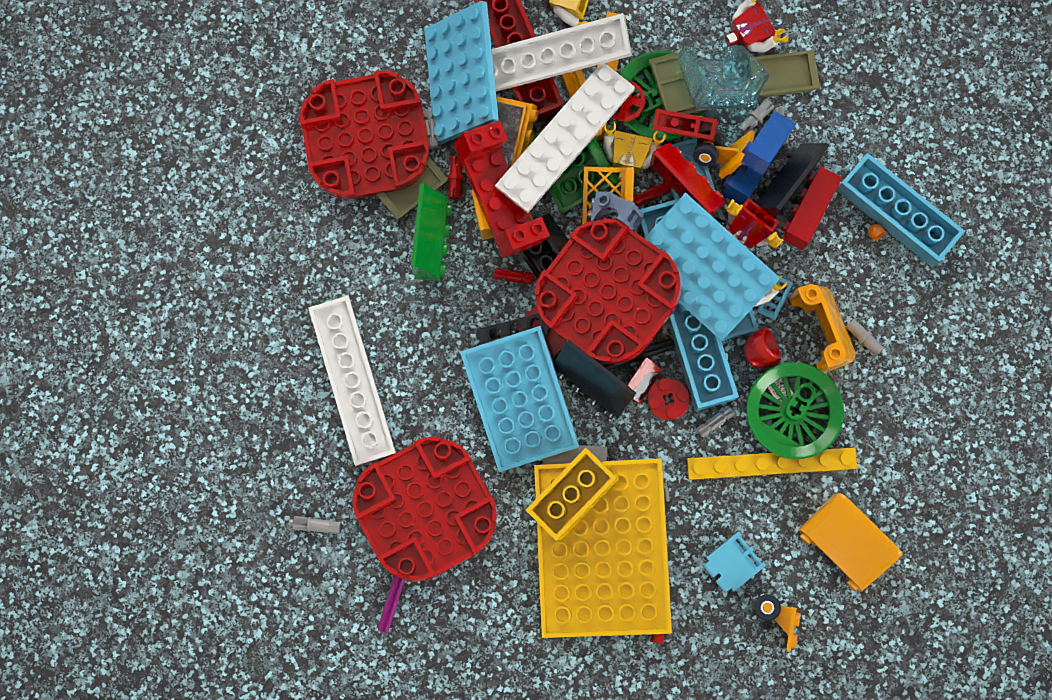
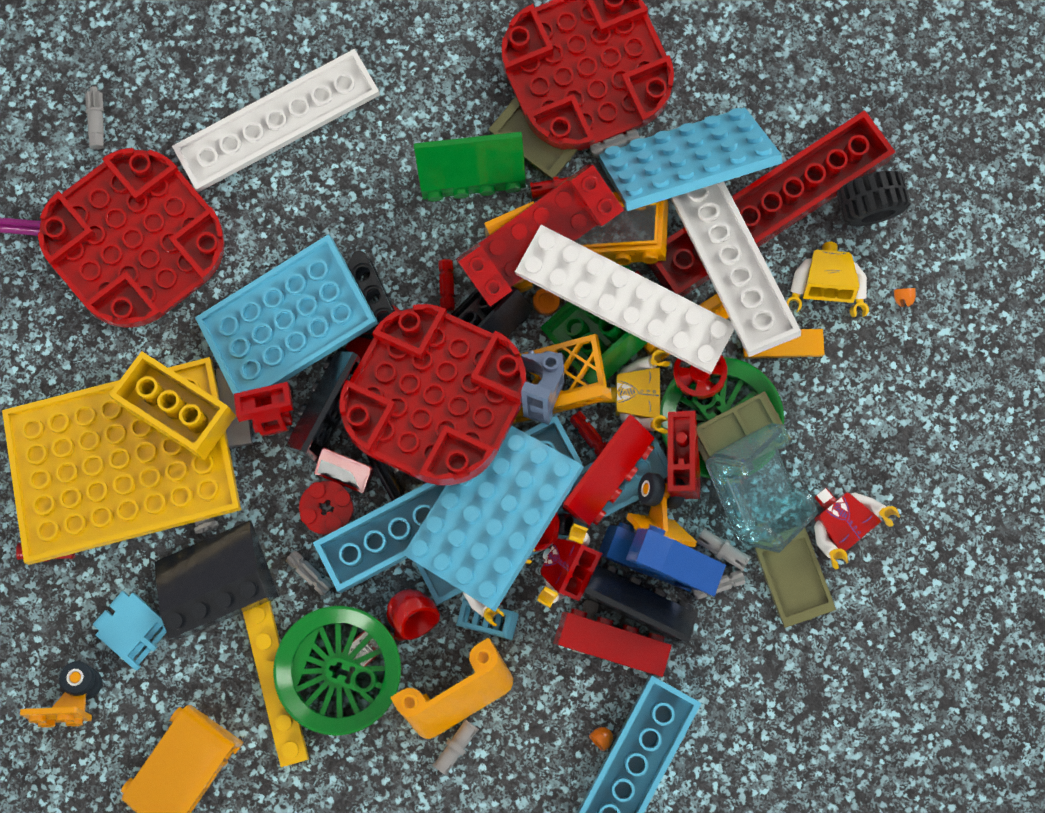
camera: 80 degrees right, 0 degrees up
(543, 206) = (545, 302): none -> orange tile
(587, 423) = (267, 407): none -> red tile
(710, 492) = (213, 581): none -> black slope

